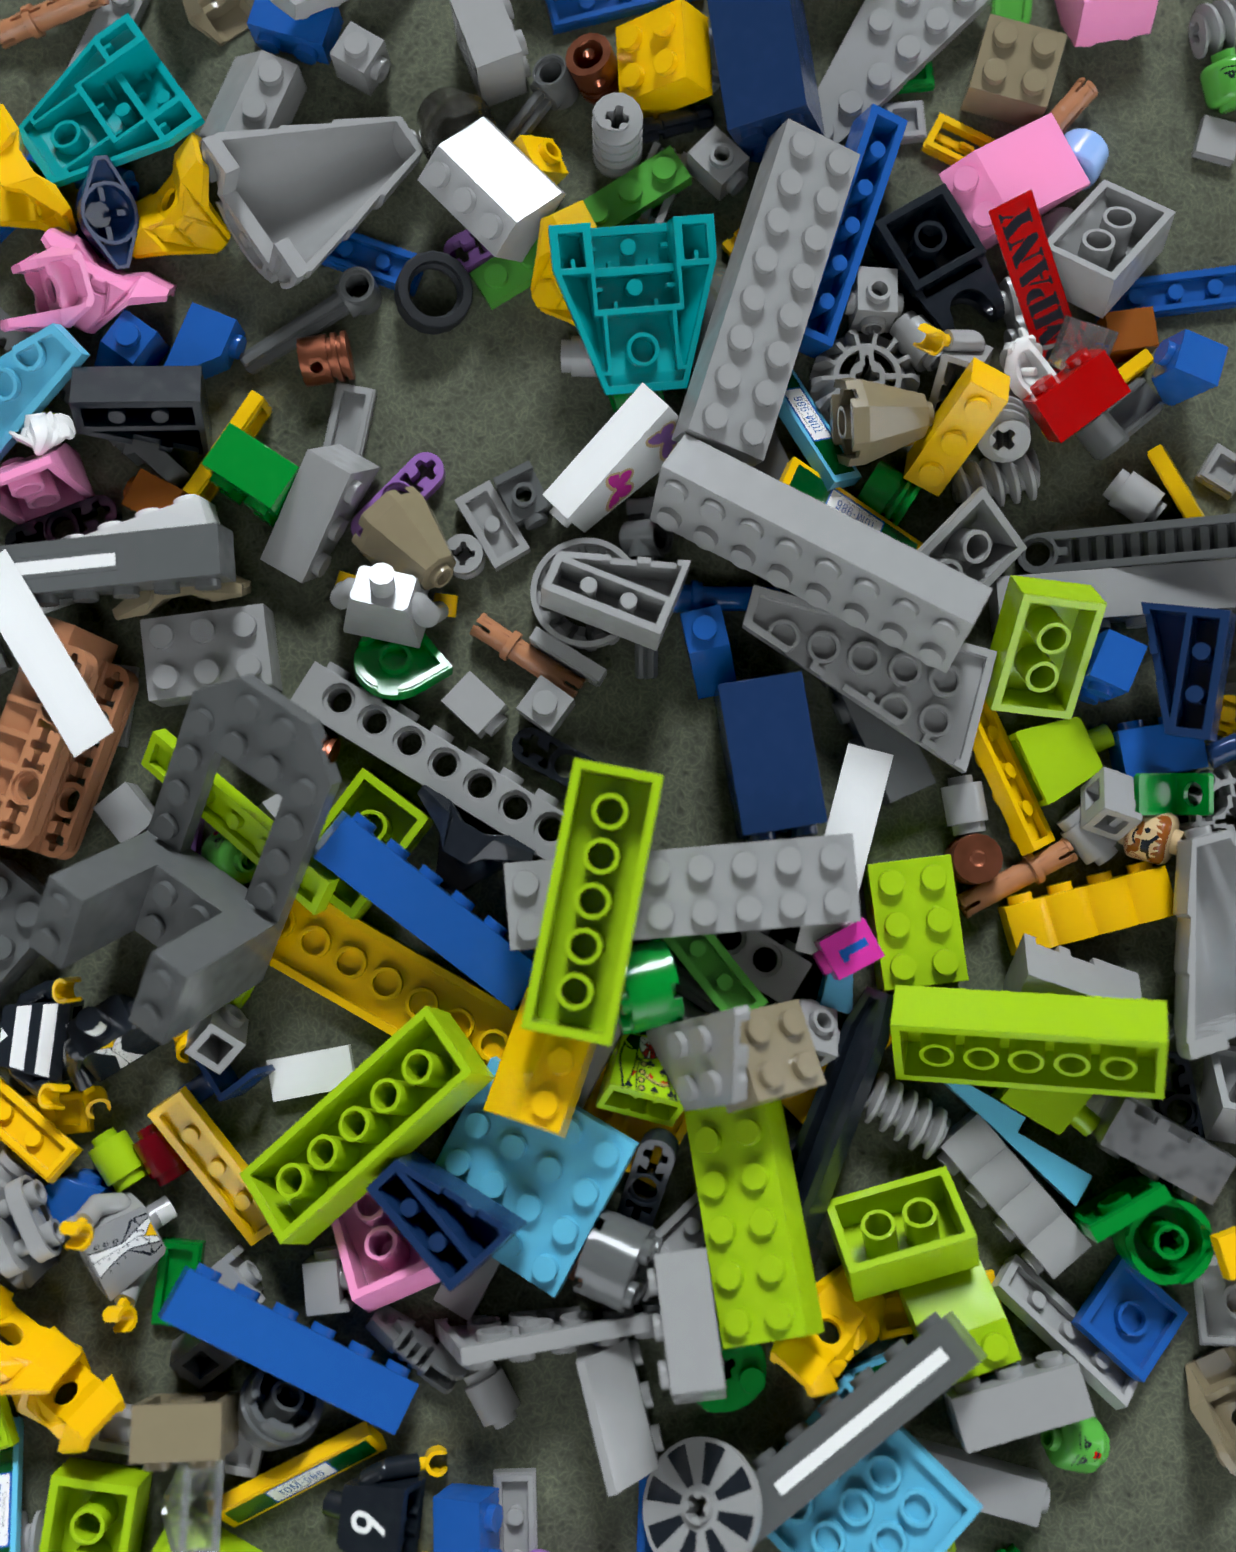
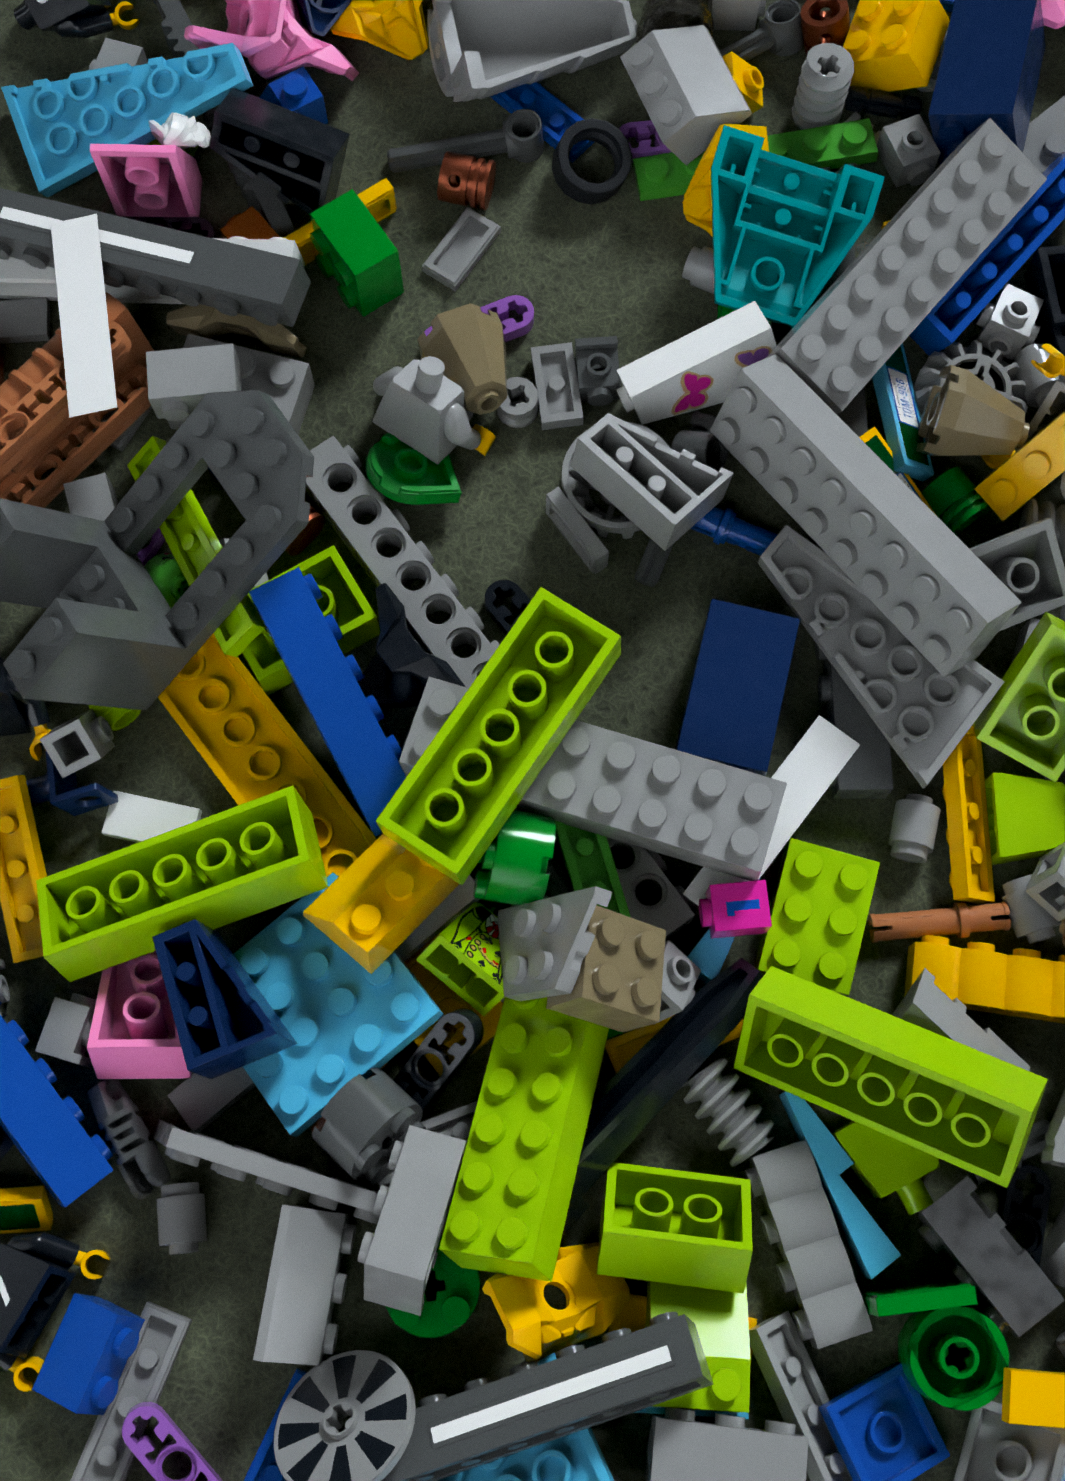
camera: 20 degrees right, 10 degrees down
(169, 670) = (185, 375): none -> light grey brick
(207, 341) = (371, 124): blue slope -> none
(318, 511) = (397, 305): light grey wedge -> none
(476, 706) = (468, 538): light grey brick -> none
(513, 647) = (527, 501): nougat pin -> none
(546, 706) = (535, 564): light grey brick -> none
(708, 649) = (715, 571): blue slope -> none
(975, 858) = (902, 882): copper piece -> none

